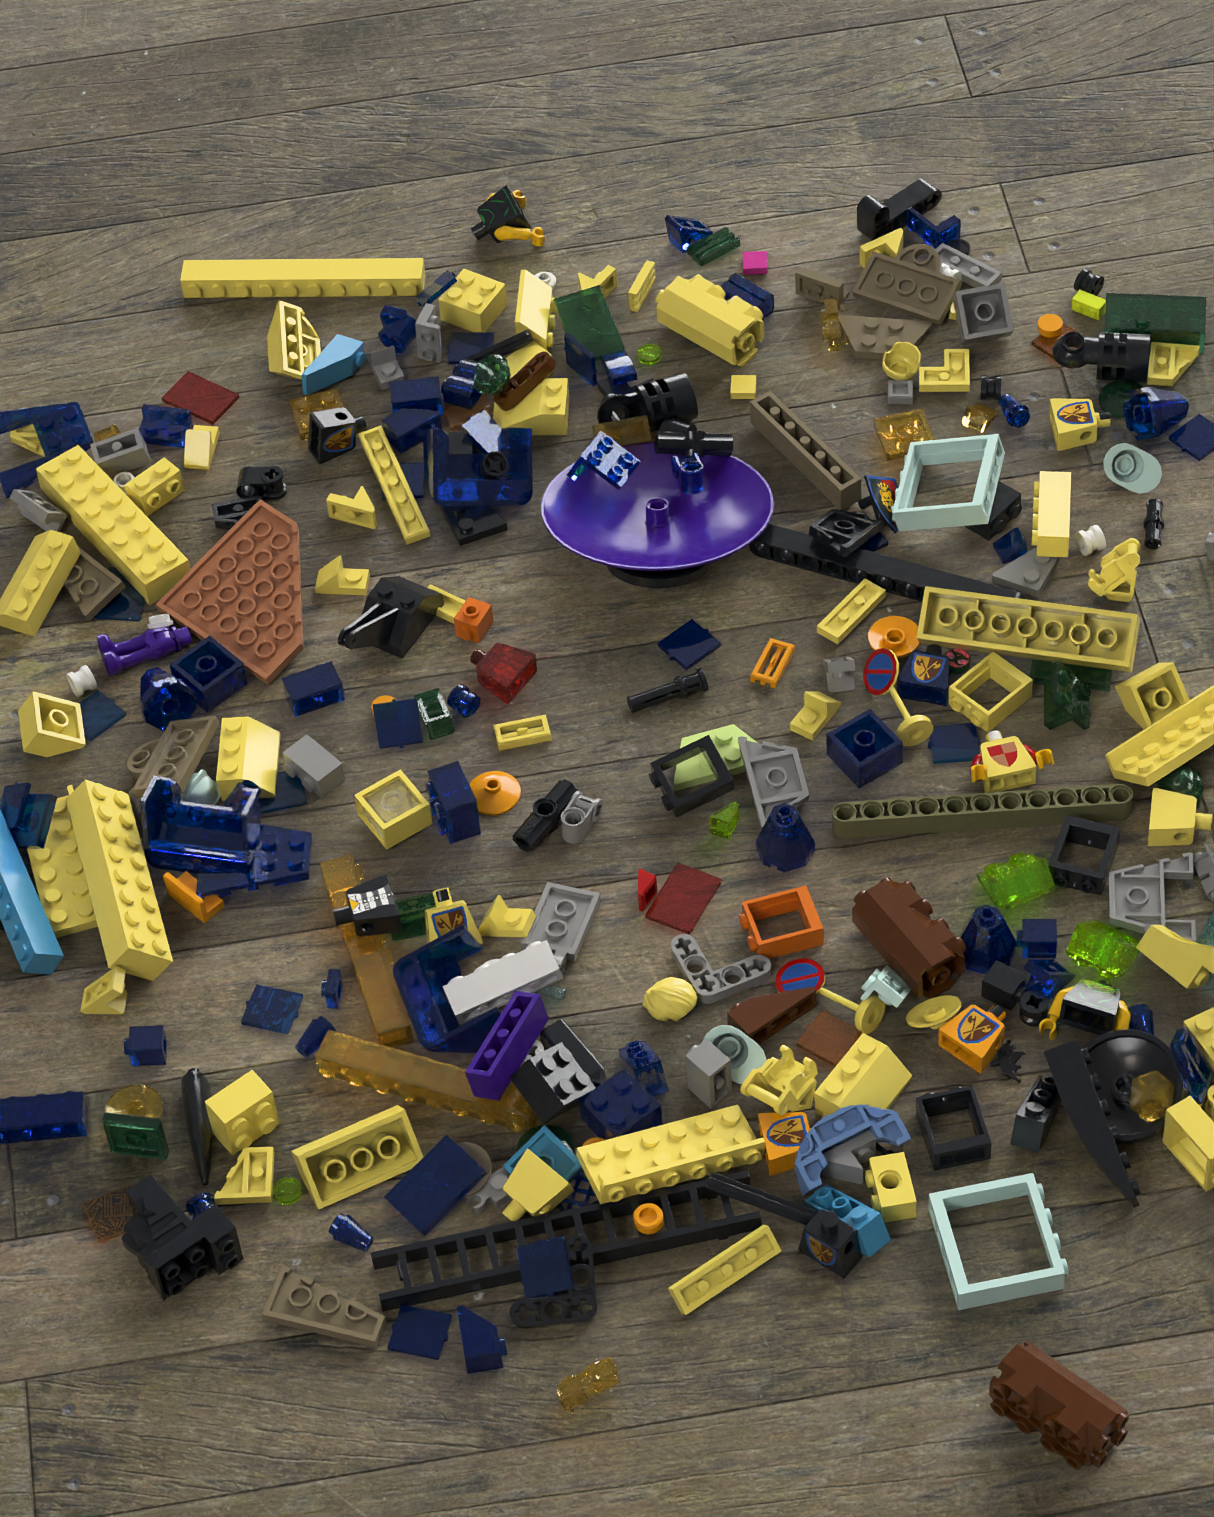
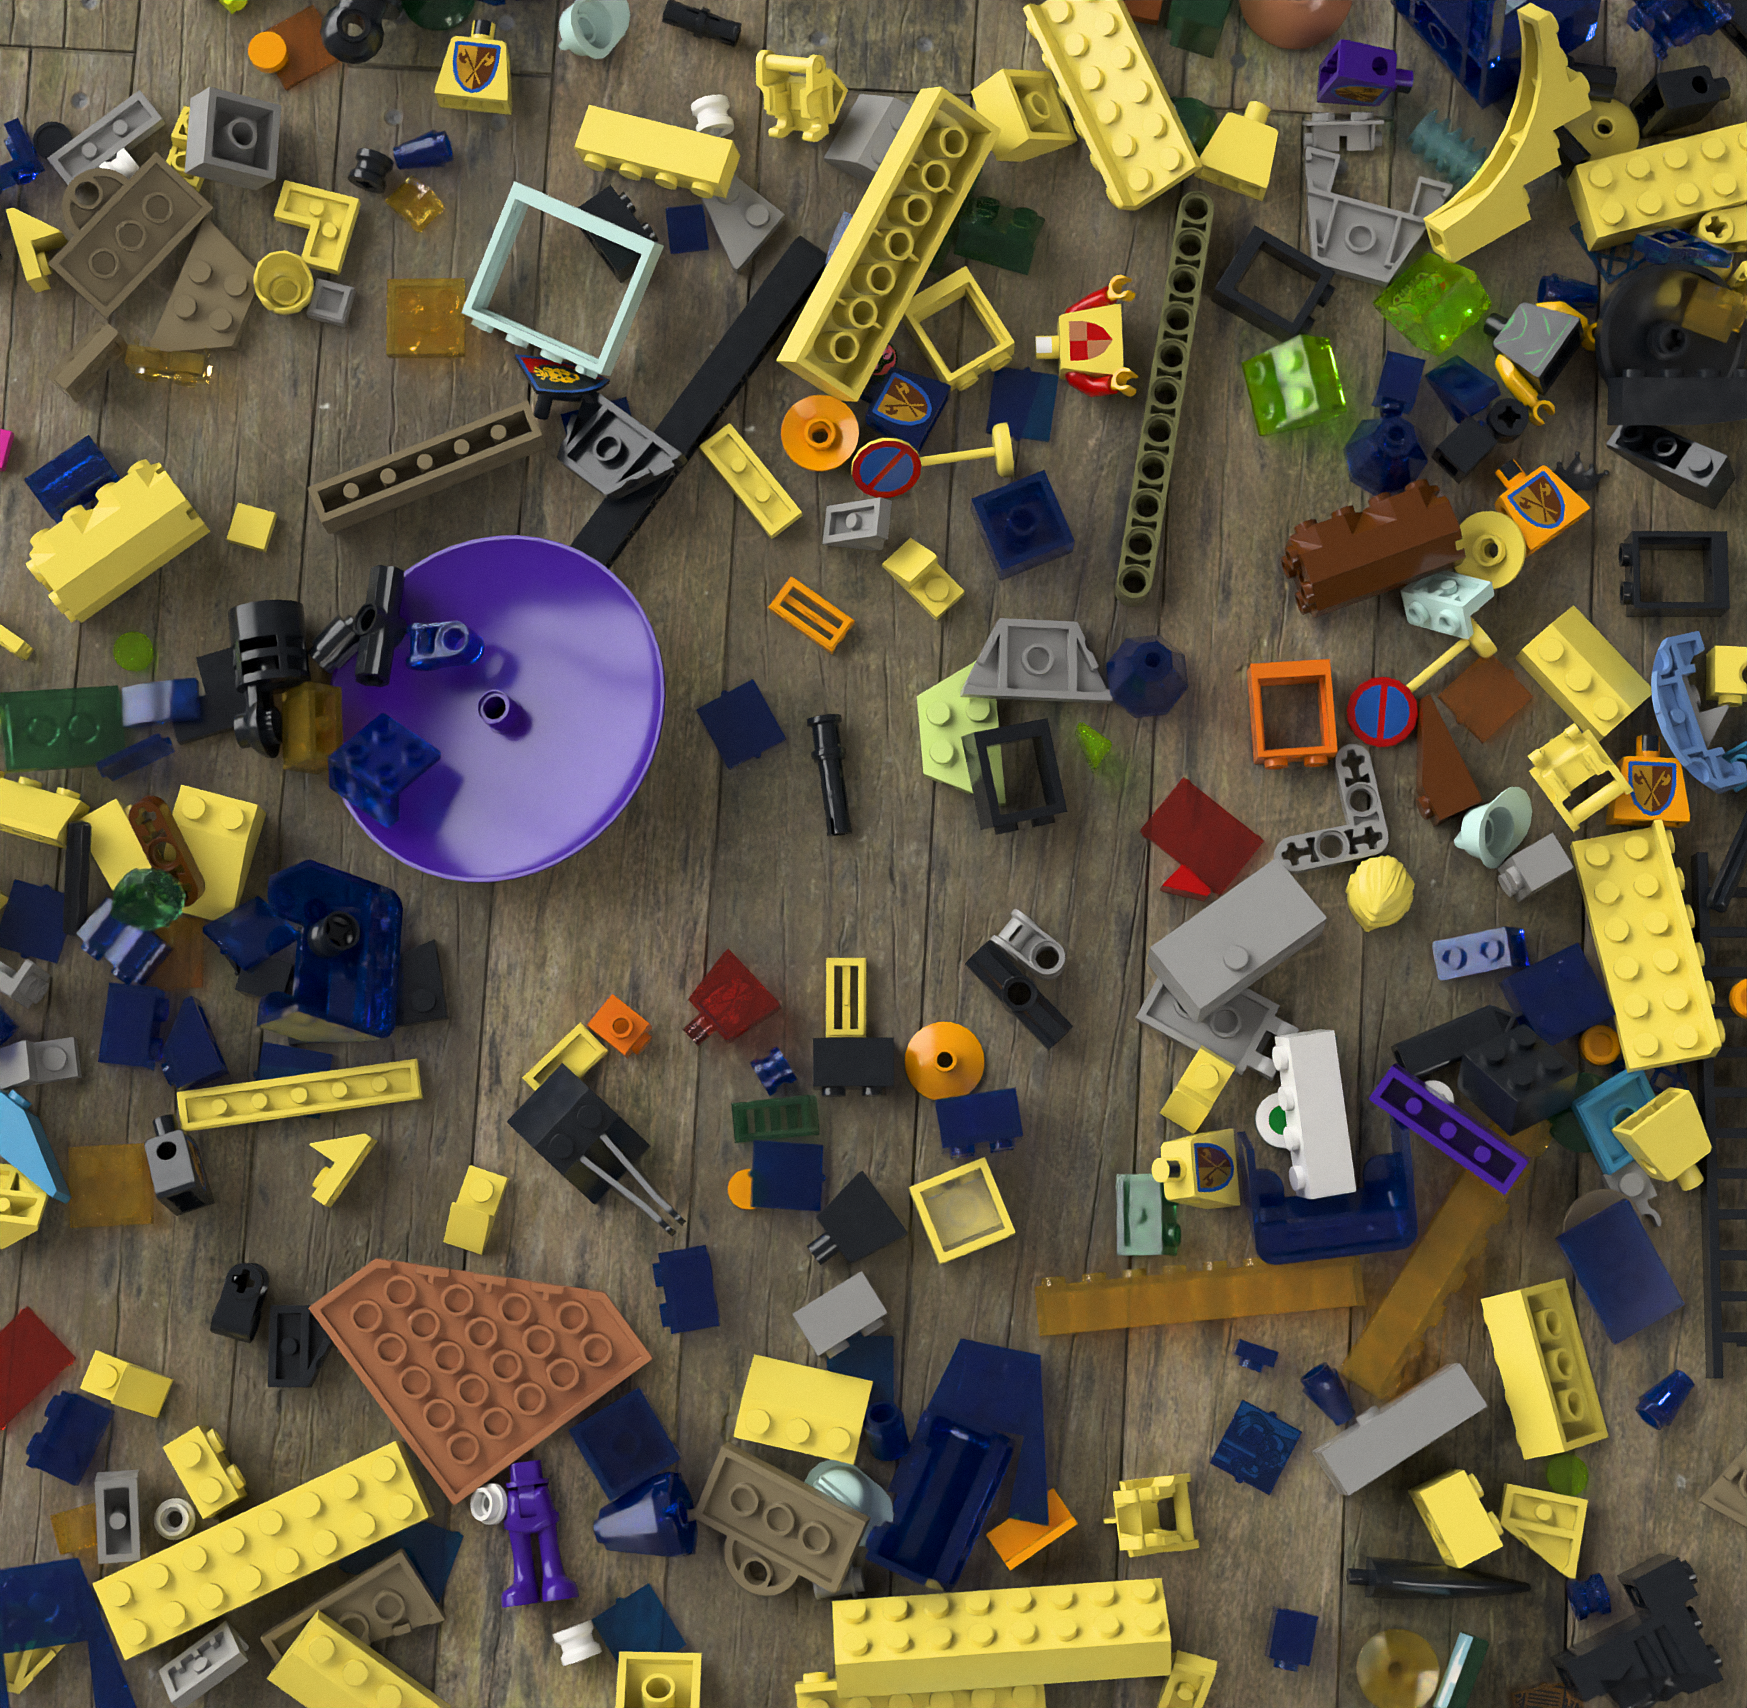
camera: 80 degrees left, 30 degrees up
(211, 942) = (1139, 1517): none -> light yellow piece
(297, 1069) = (1398, 1428): none -> light grey brick
(370, 908) = (1159, 1276): black torso -> none
(374, 759) = (856, 1223): none -> black torso
(477, 739) = (853, 1065): none -> black brick
(611, 915) = (1236, 940): none -> light grey brick

